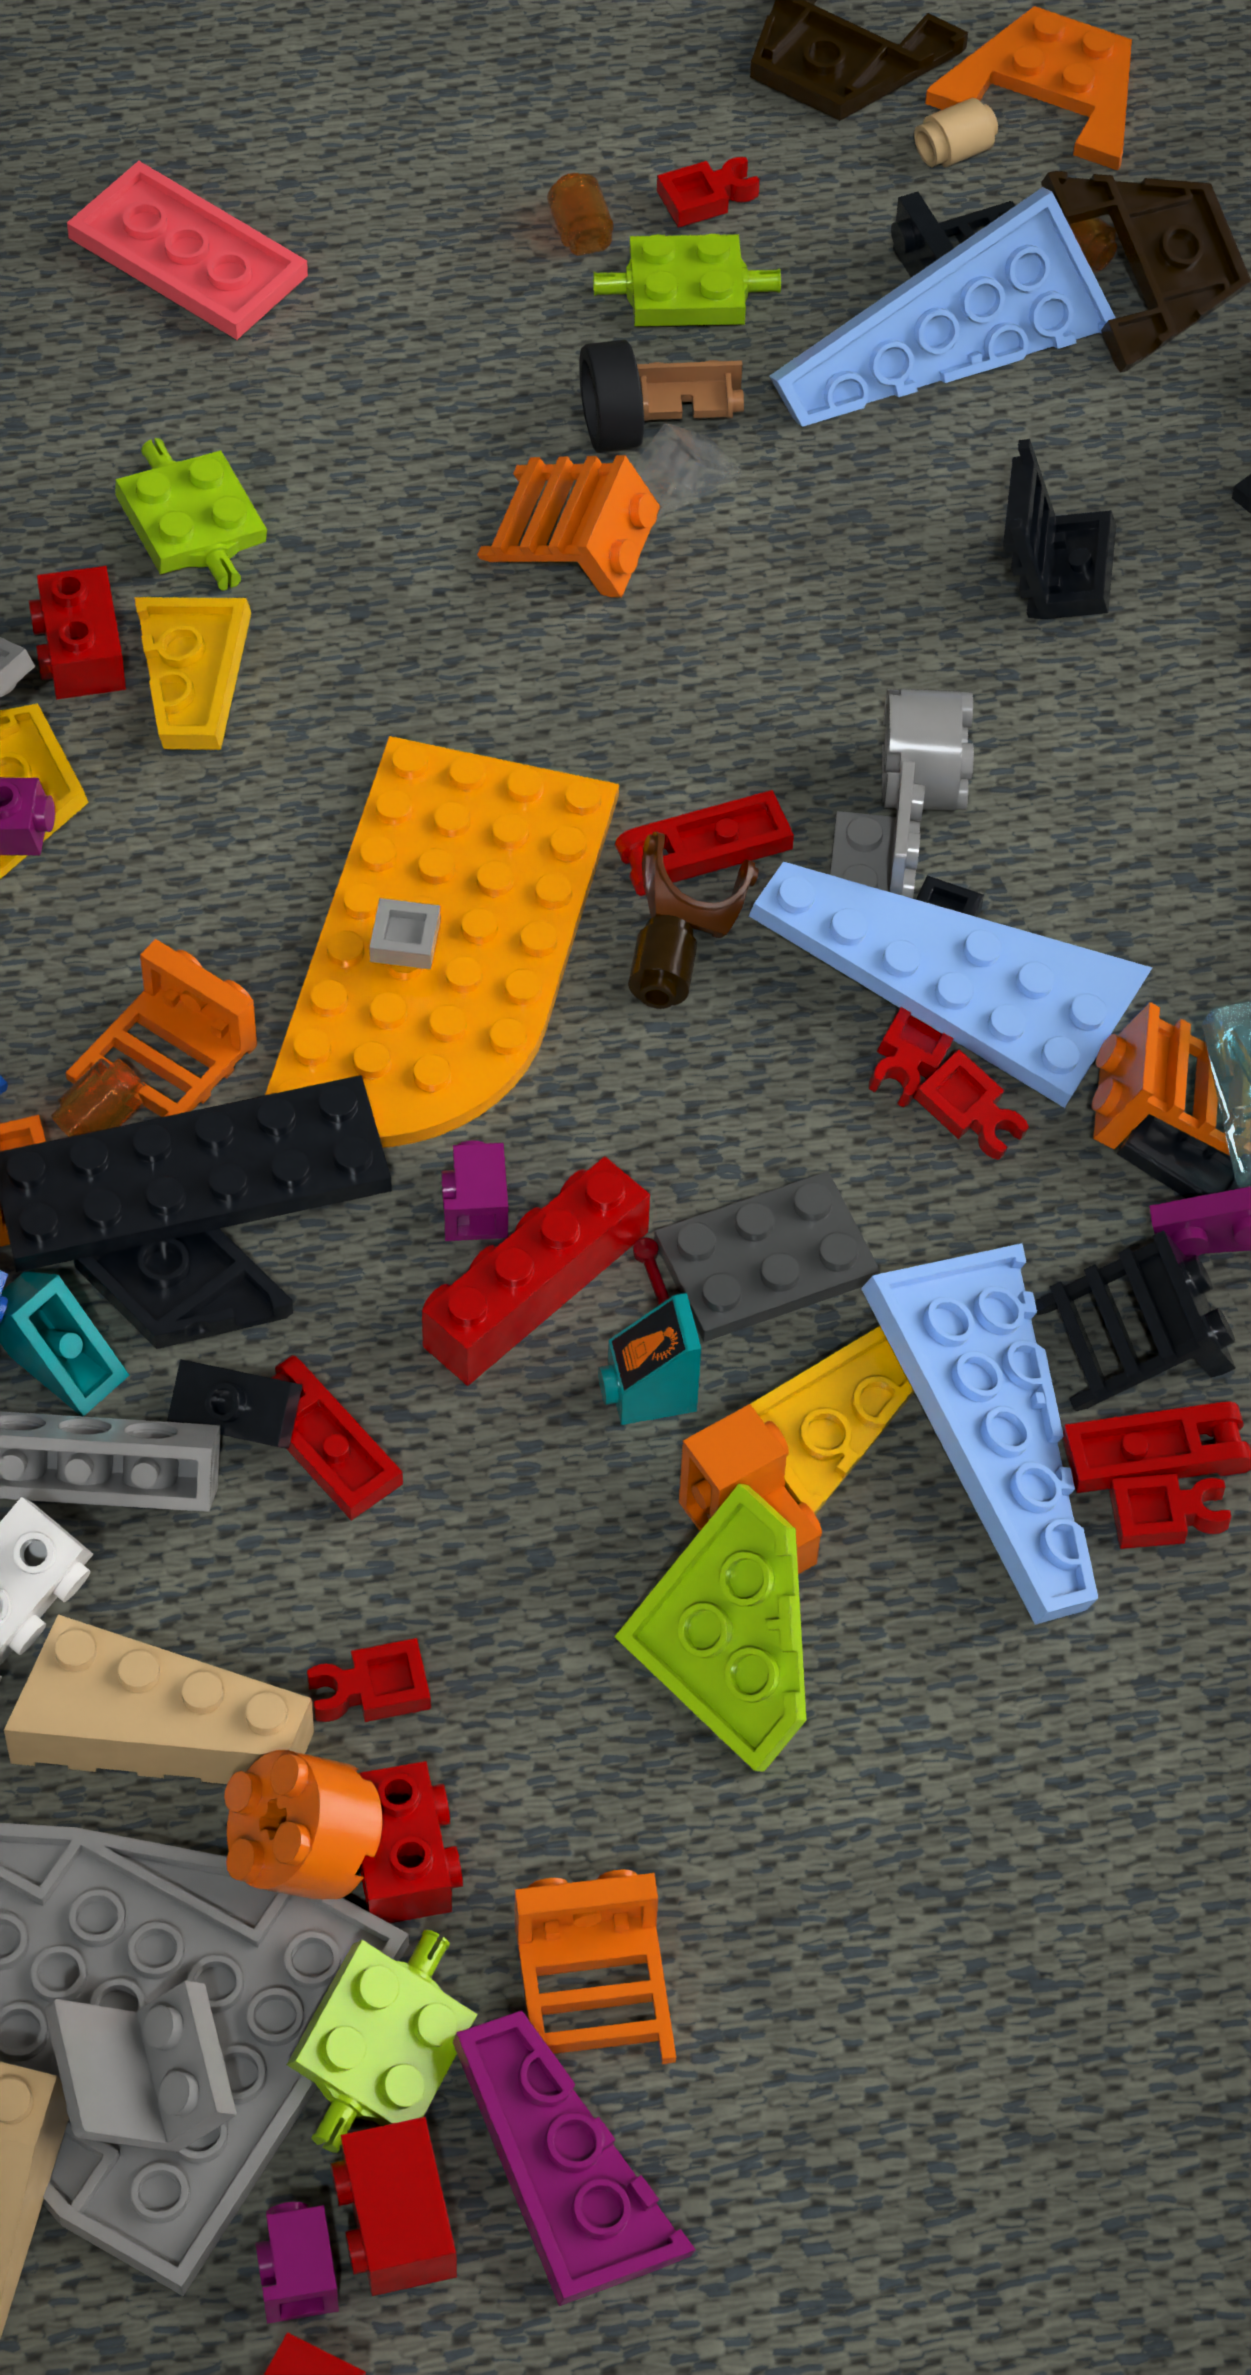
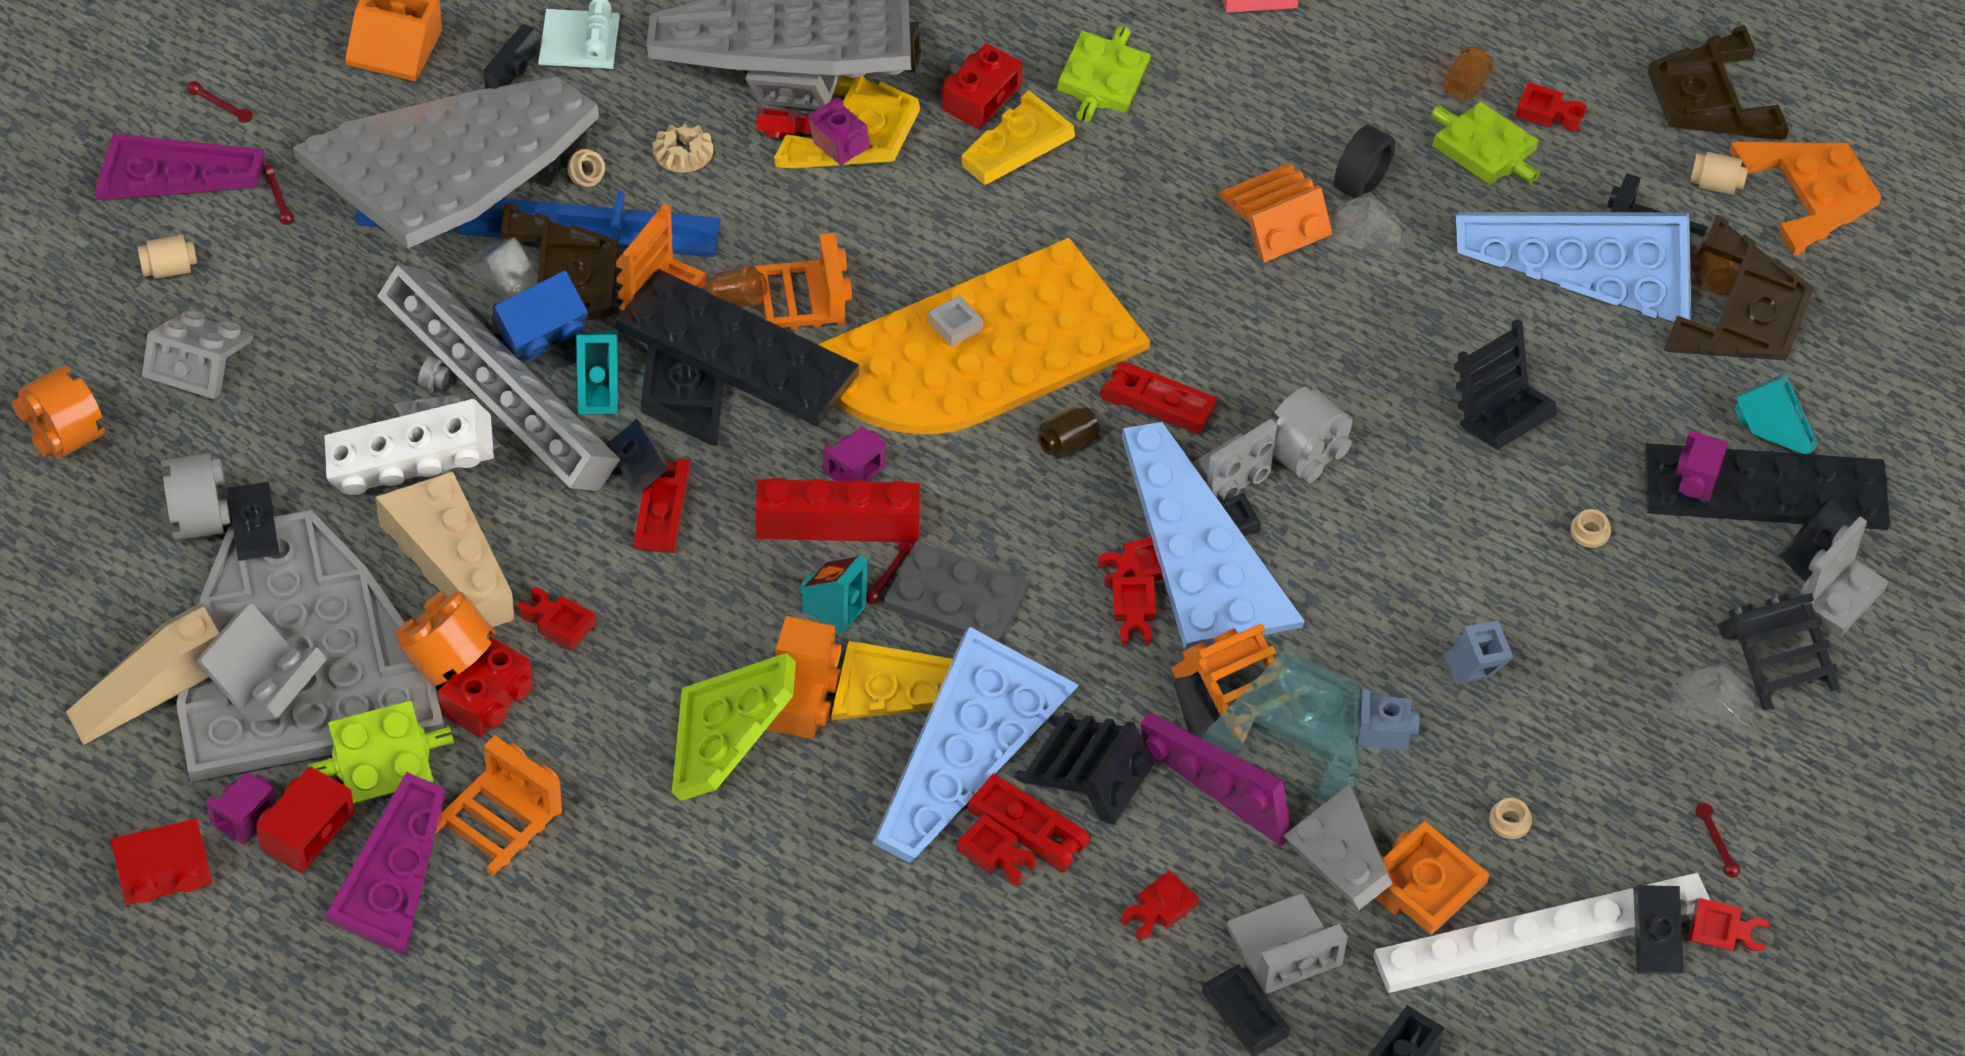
camera: 45 degrees right, 5 degrees down
(667, 899) = (1099, 406): reddish brown helmet -> none
(709, 385) = (1426, 198): medium nougat hinge -> none

